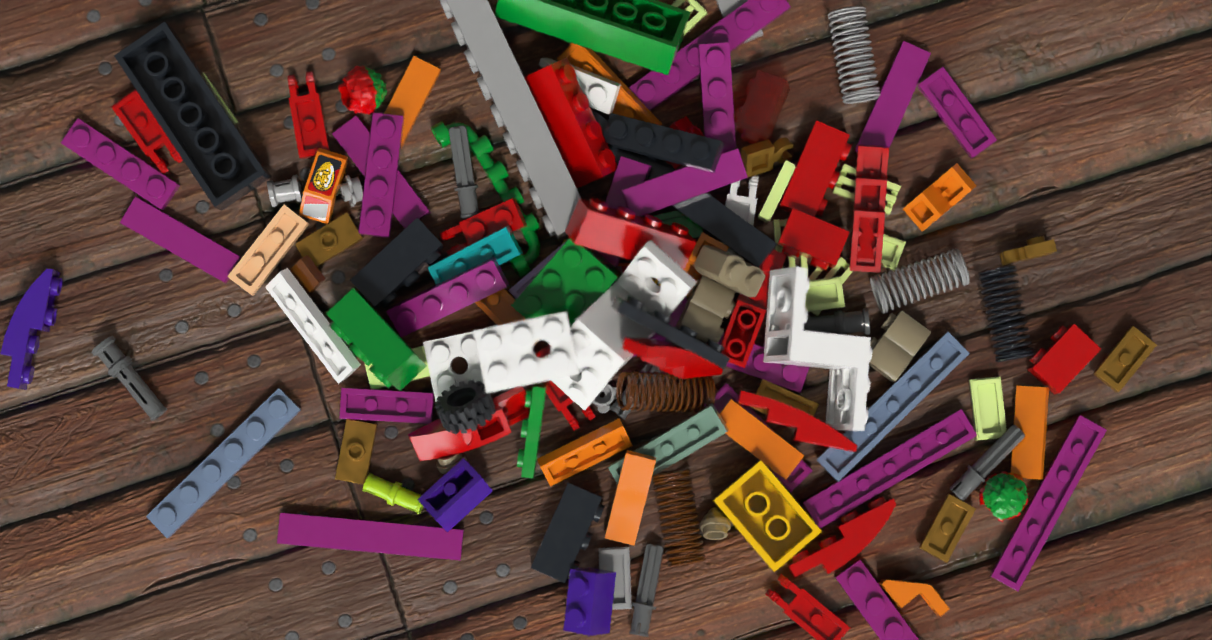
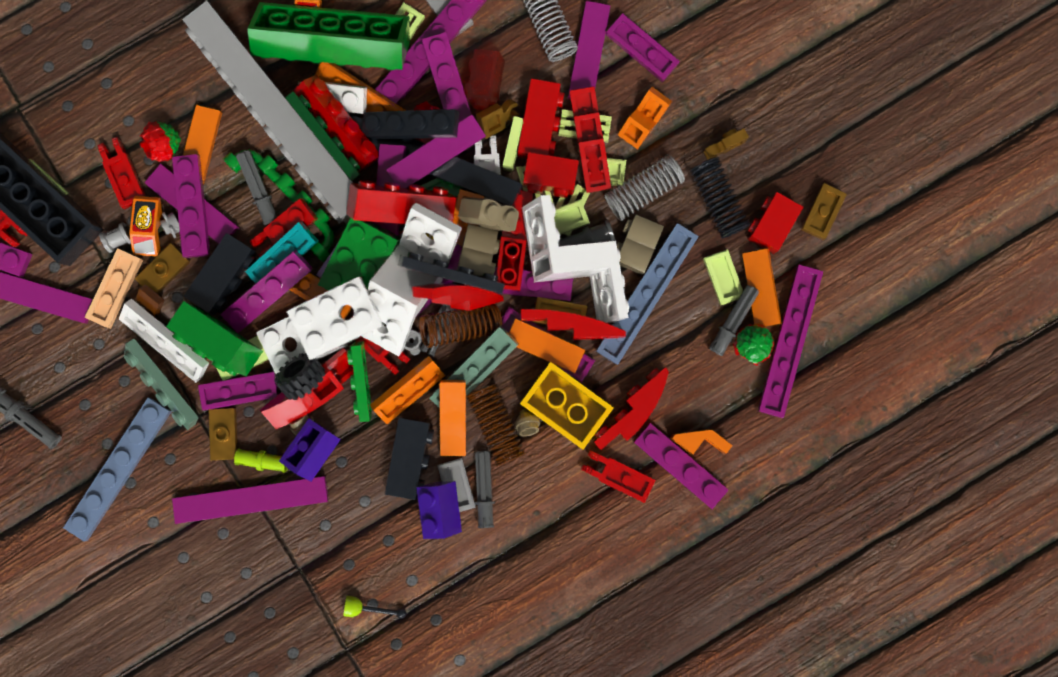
camera: 15 degrees left, 0 degrees up
(302, 386) = (165, 391): none -> sand green plate
(566, 146) = (318, 128): none -> dark green plate
(889, 468) = (656, 344): magenta plate -> none
(947, 528) = (714, 381): pearl gold plate -> none

